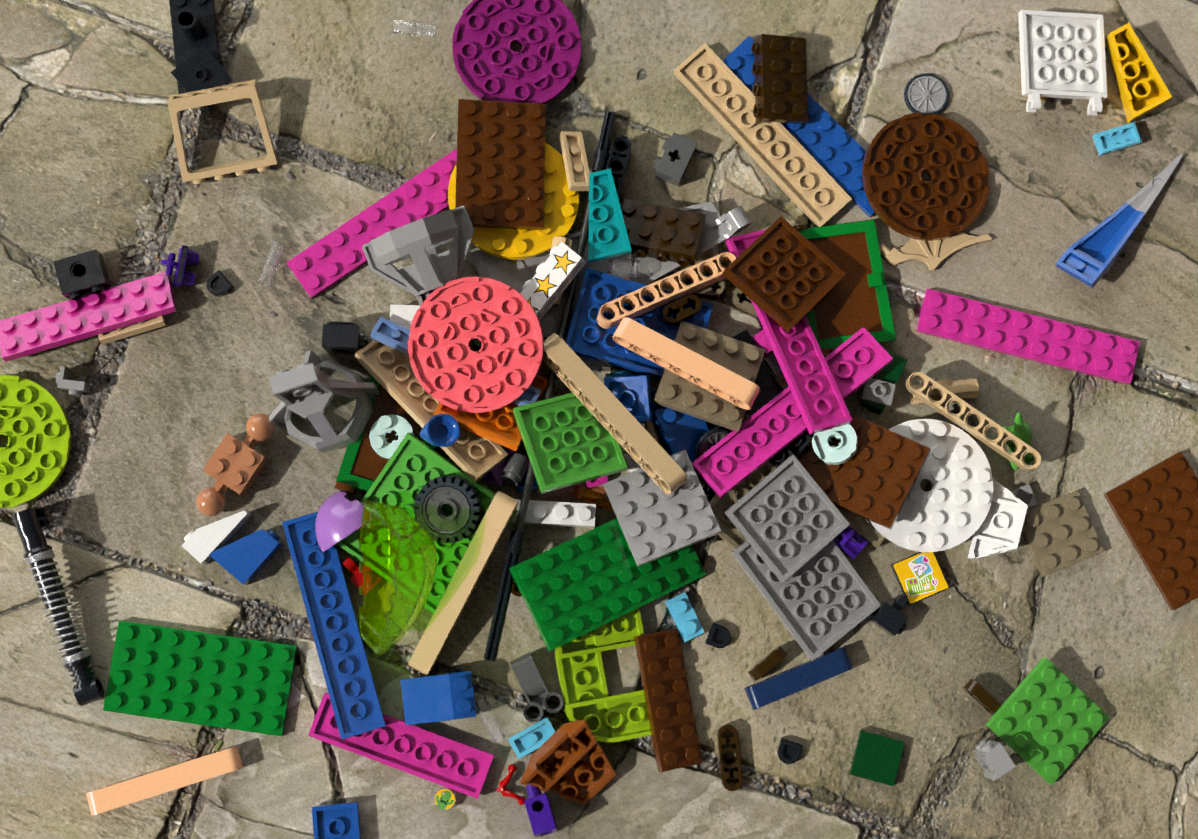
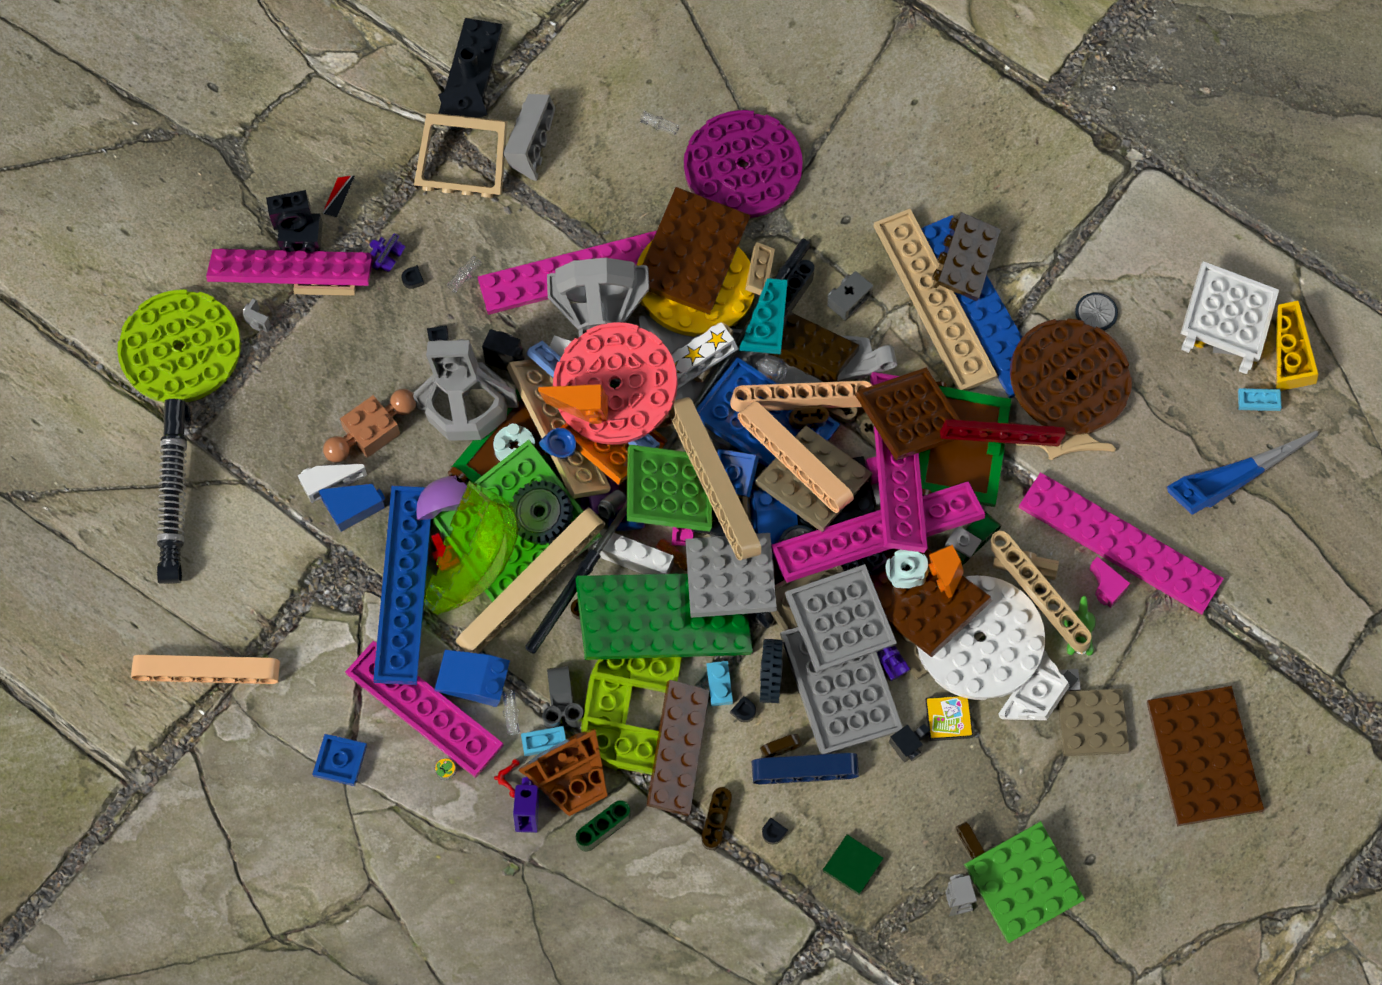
camera: 25 degrees right, 15 degrees down
(63, 260) = (289, 210): none -> black brick
(106, 217) = (338, 195): none -> sticker
(200, 678) = (270, 595): green plate -> none
(269, 340) = (438, 333): none -> black tile
(284, 86) = (530, 135): none -> light grey wedge
(453, 382) = (581, 401): none -> orange slope
(621, 816) = (607, 815): none -> dark green beam
(736, 595) = (771, 671): none -> black wheel
(875, 266) = (1002, 432): none -> dark red plate
(878, 432) = (948, 569): none -> orange slope
(1033, 386) = (1110, 584): none -> dark pink arch

